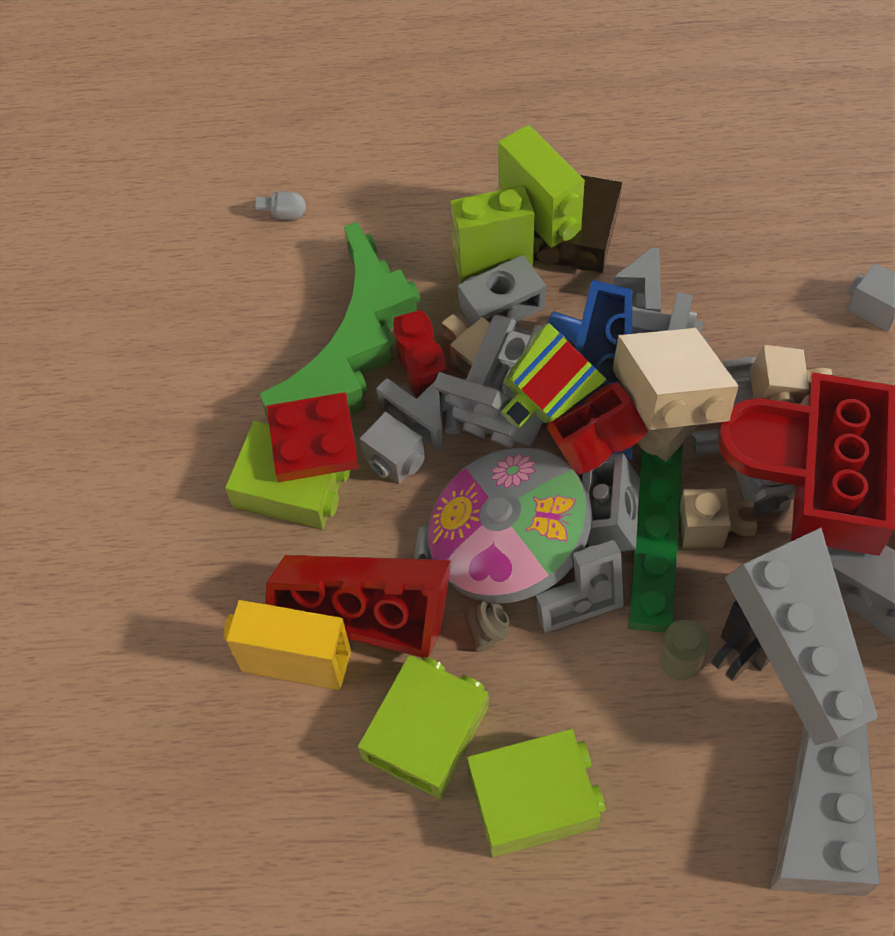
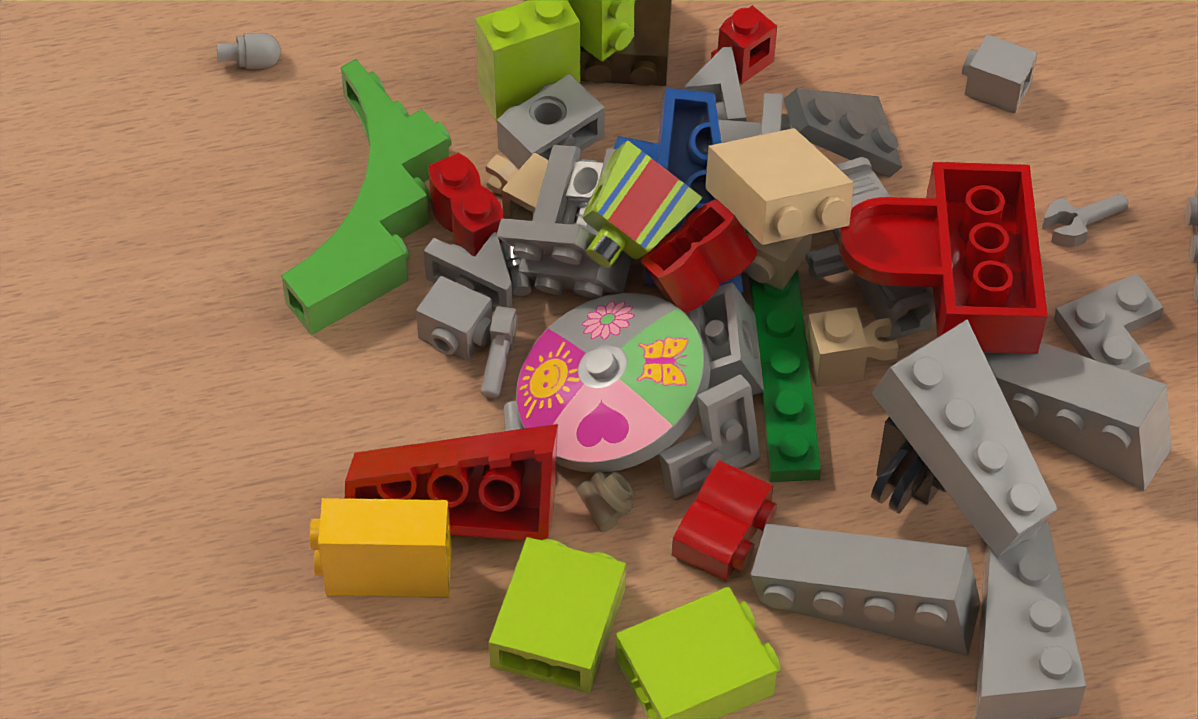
camera: 15 degrees left, 5 degrees down
(256, 488) = (336, 366): lime brick -> none
(312, 437) = (360, 315): red plate -> none
(428, 467) = (502, 340): none -> light grey bar
(581, 662) = (723, 521): none -> red brick
(671, 237) = (748, 32): none -> red brick
(684, 649) = (837, 489): olive brick -> none
(698, 744) = (871, 583): none -> light grey wedge
(737, 323) = (846, 126): none -> dark grey wing
(781, 374) = (898, 169): tan brick -> none

